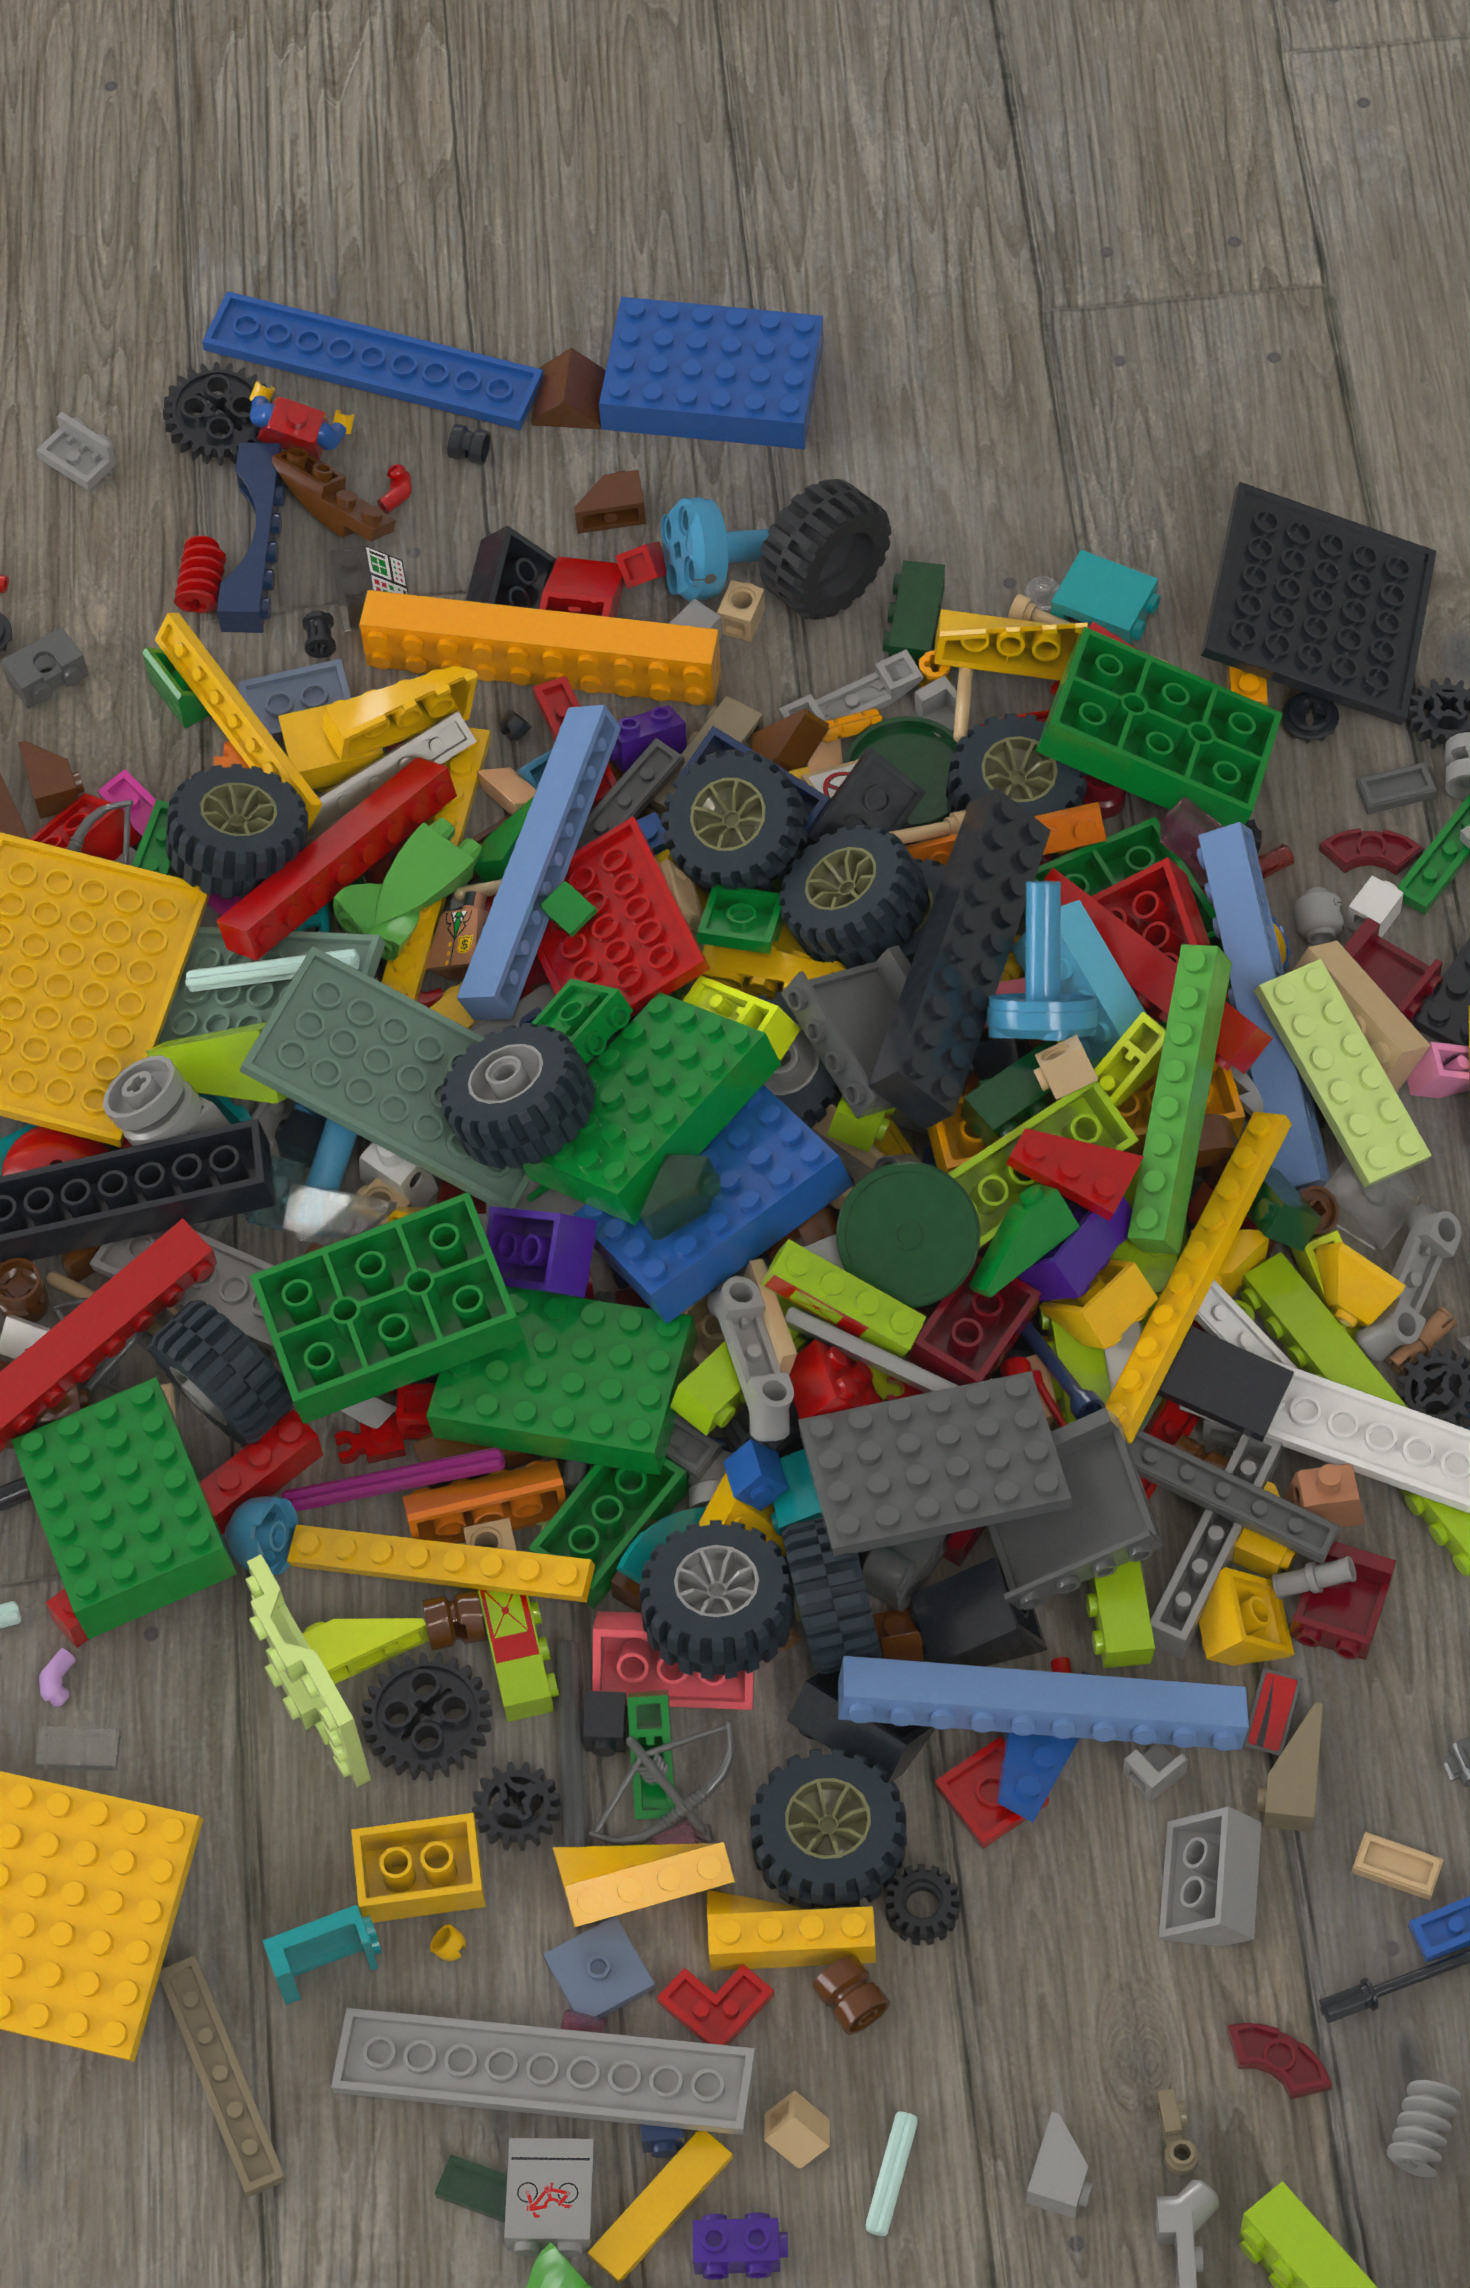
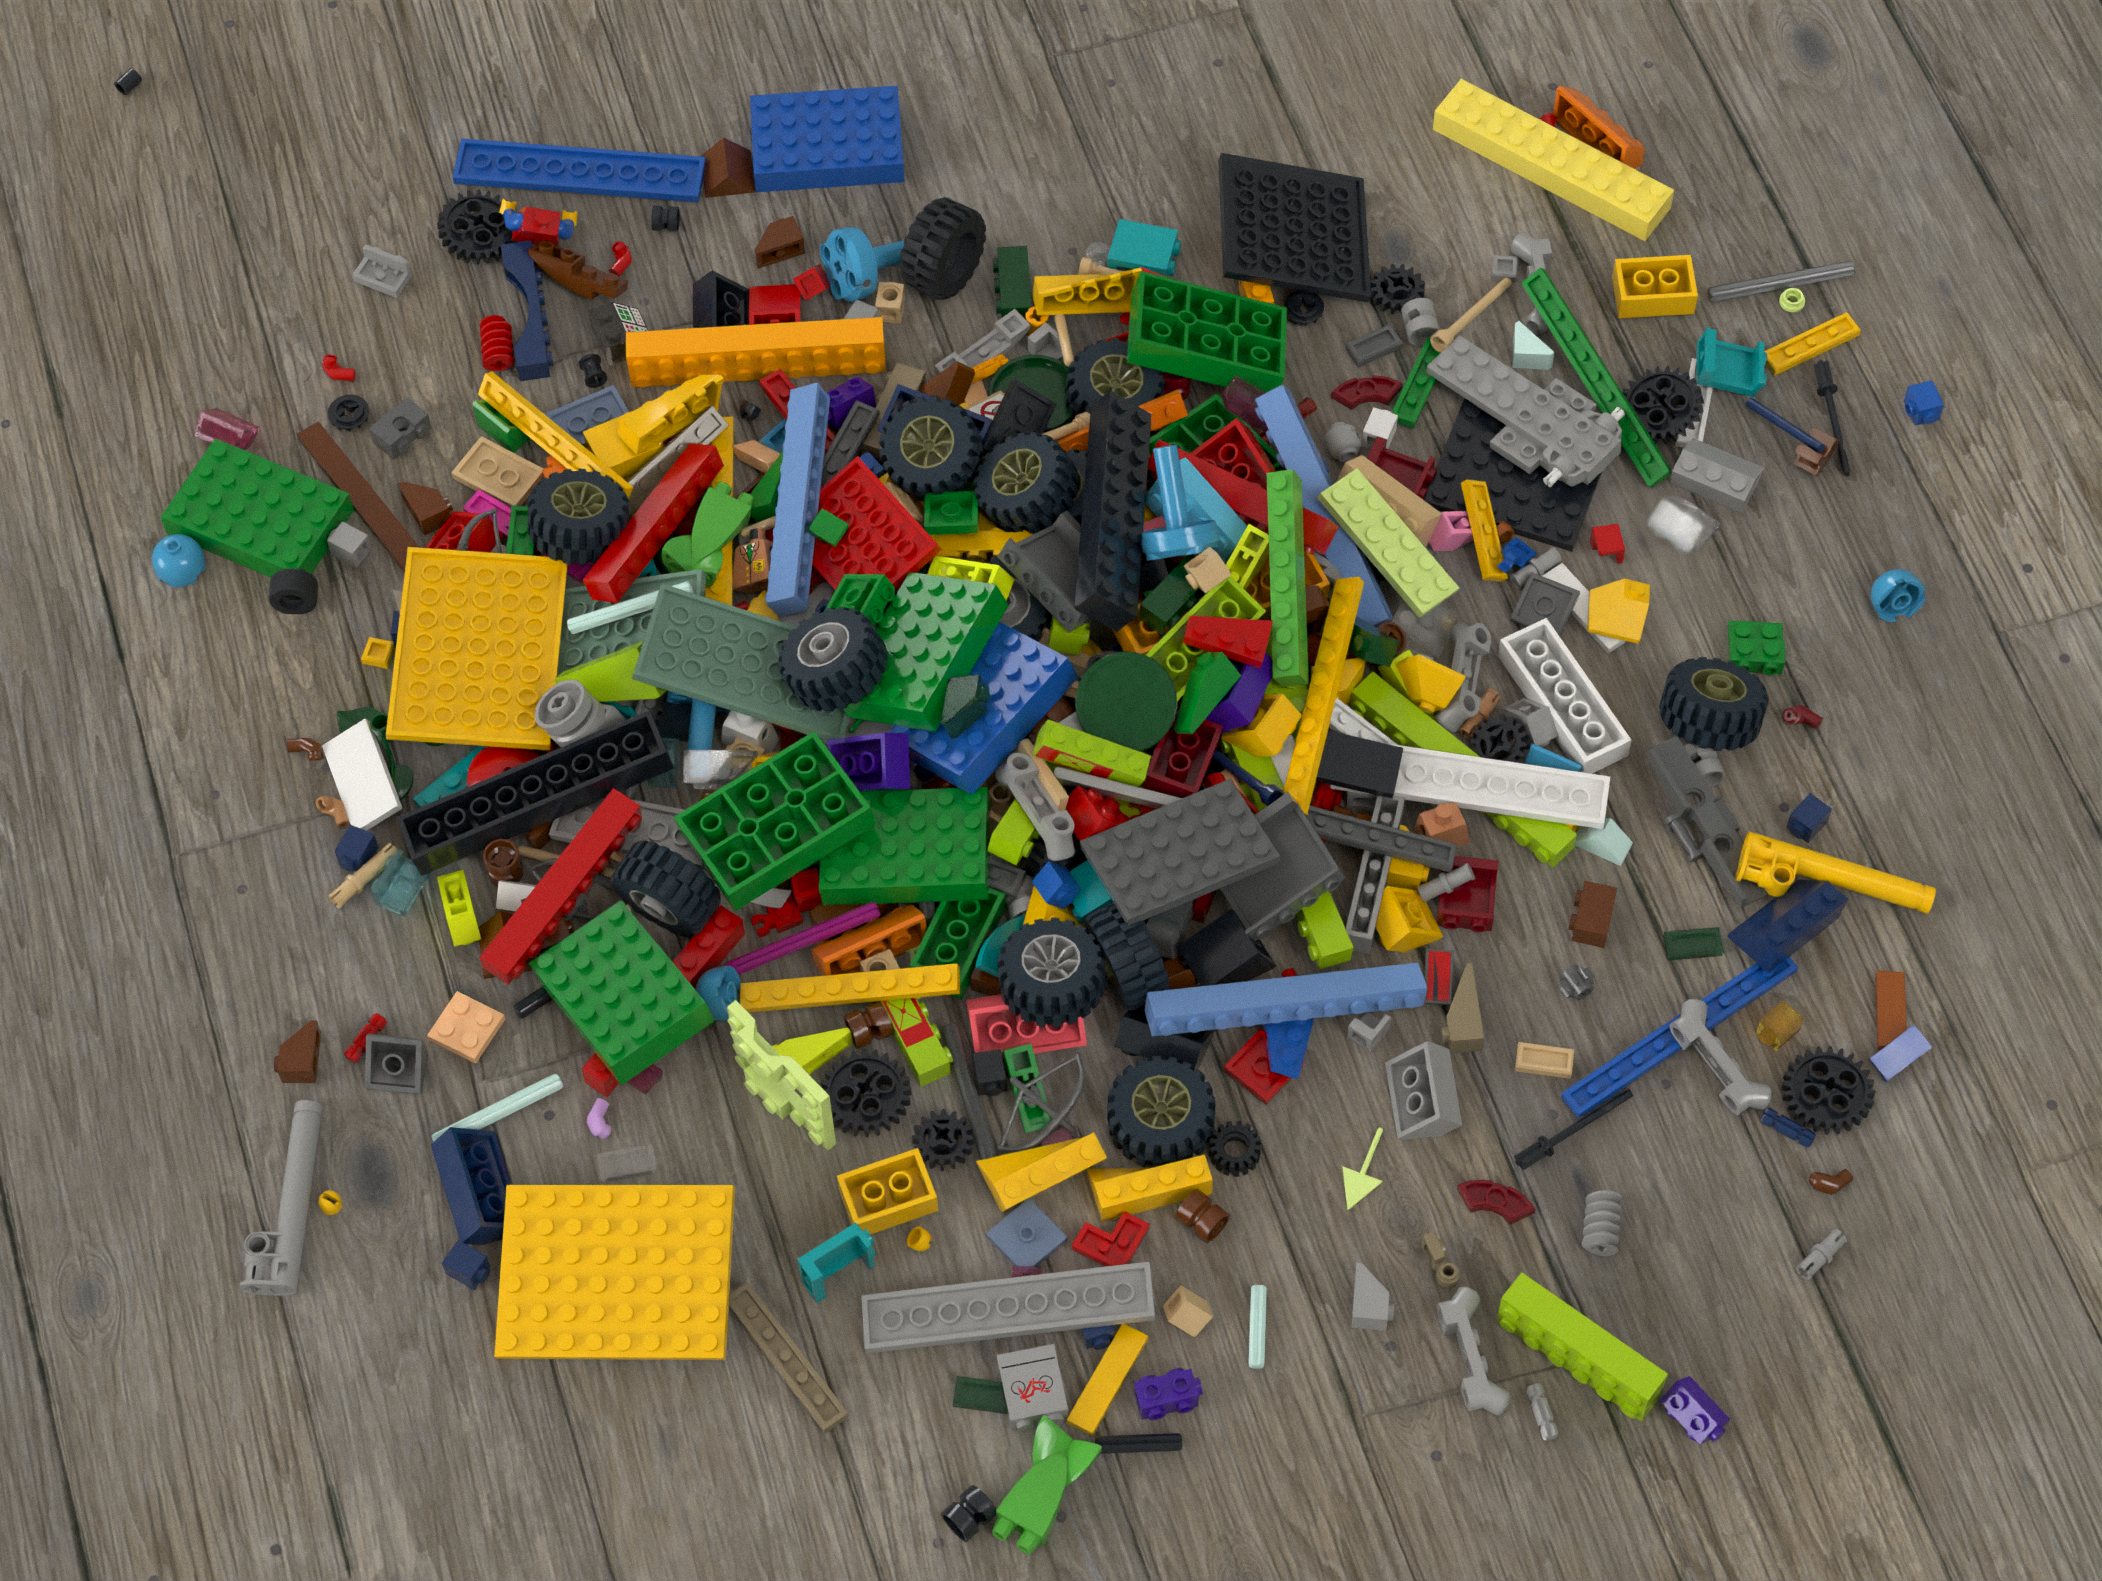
camera: 15 degrees left, 0 degrees up
(135, 1633) = (646, 1079): none -> clear pink tile
(154, 749) = (498, 473): none -> tan plate
(1086, 1992) = (1358, 1184): none -> yellowish green piece

